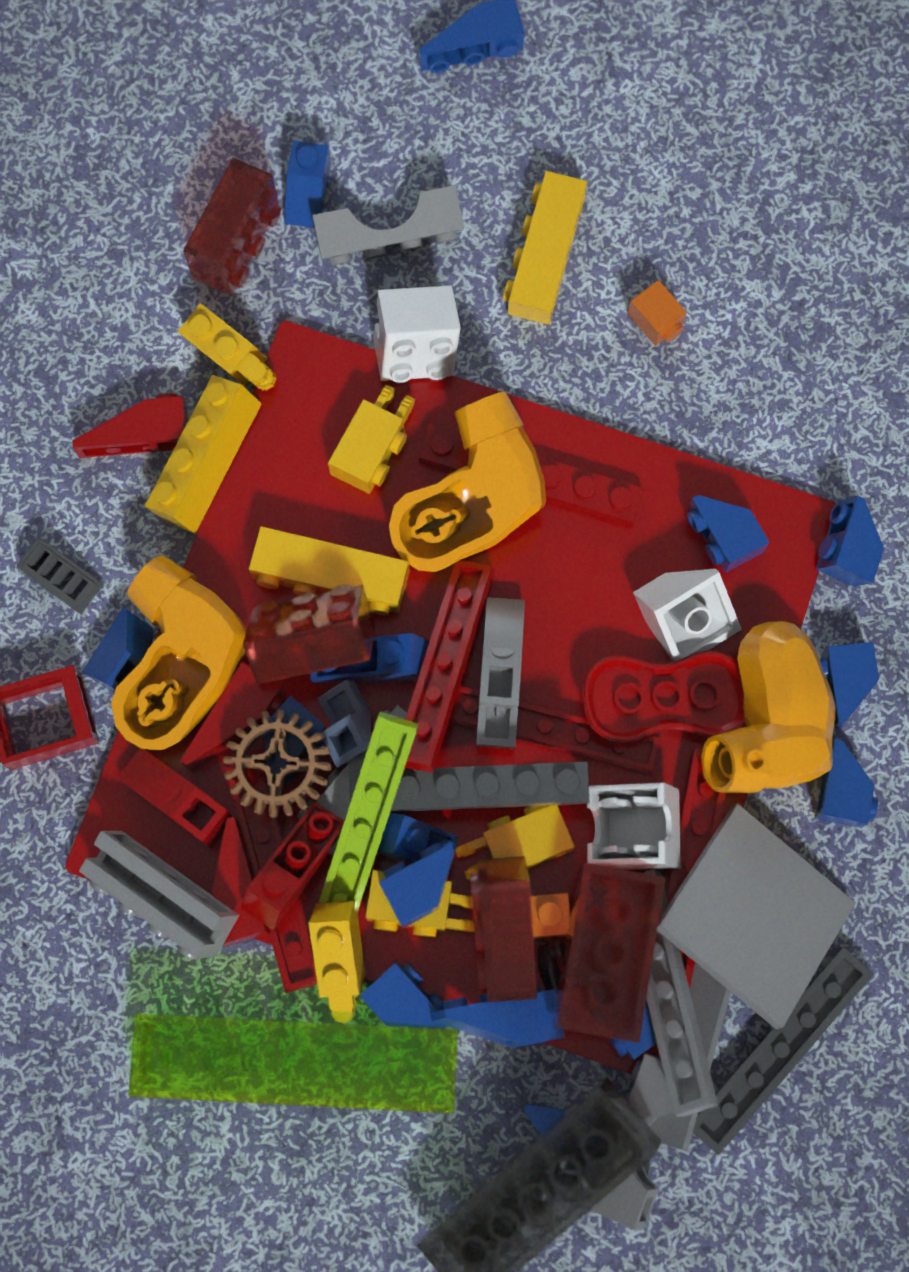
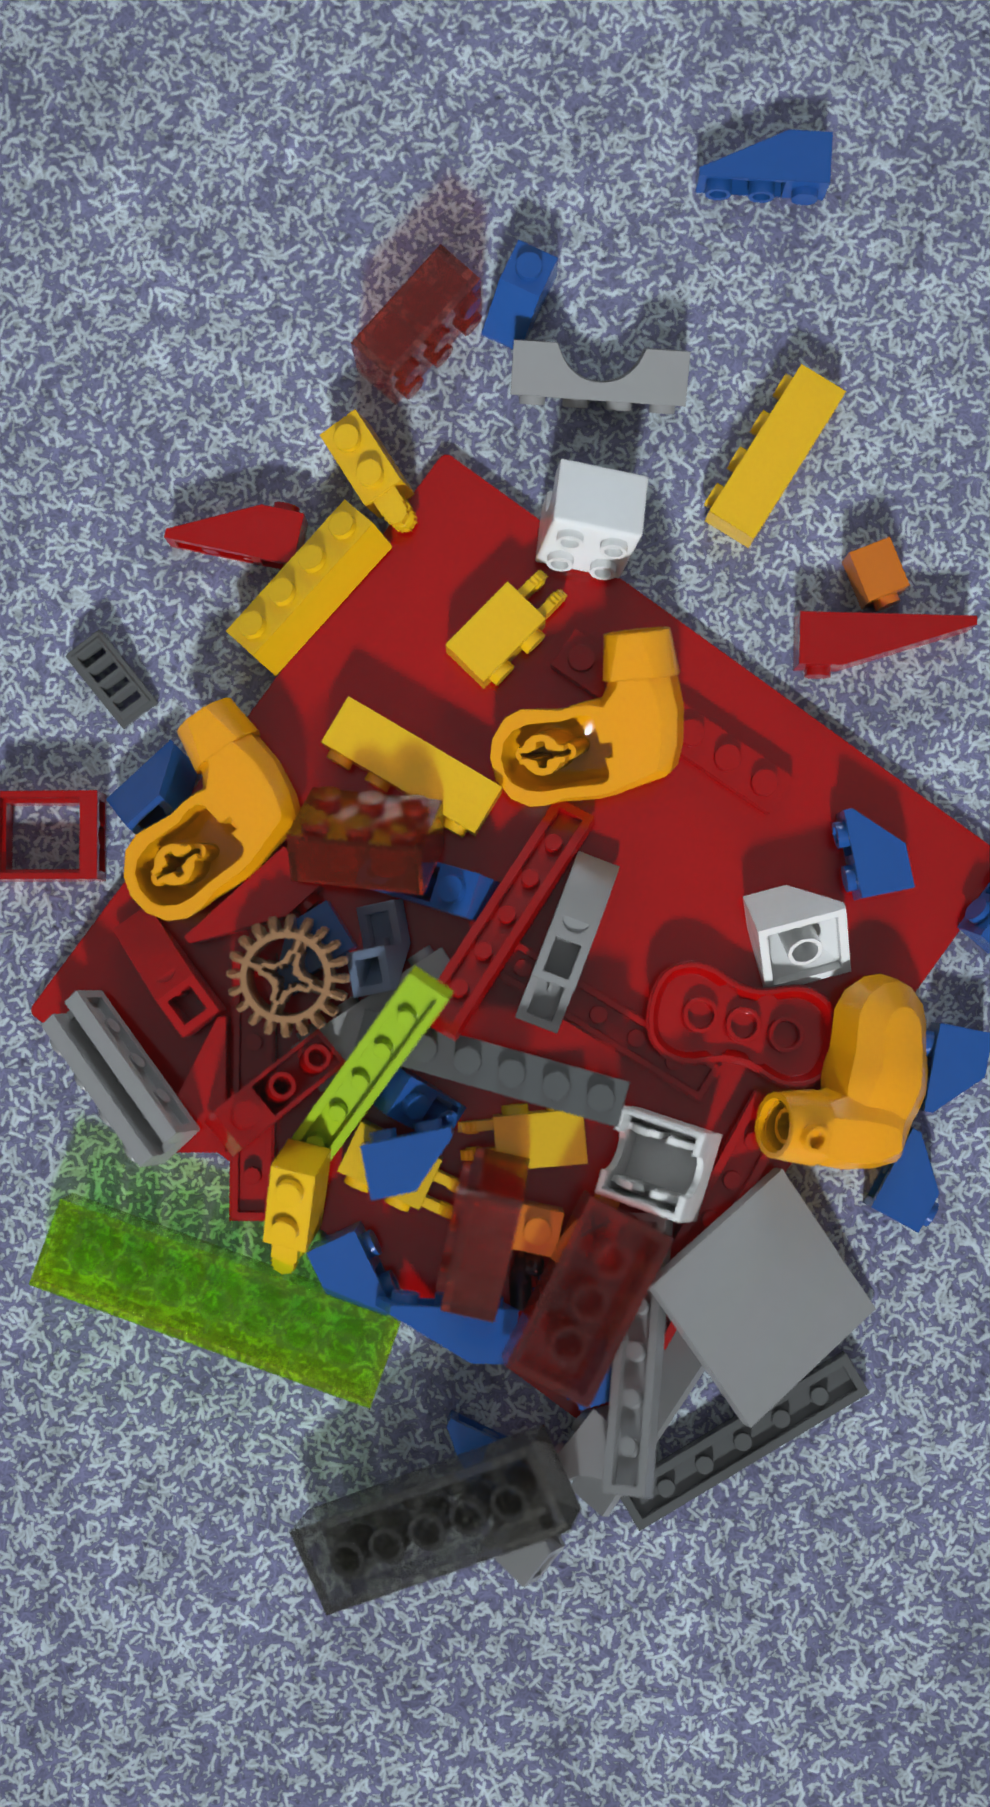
camera: 20 degrees right, 10 degrees up
(652, 369) = (846, 639): none -> red slope

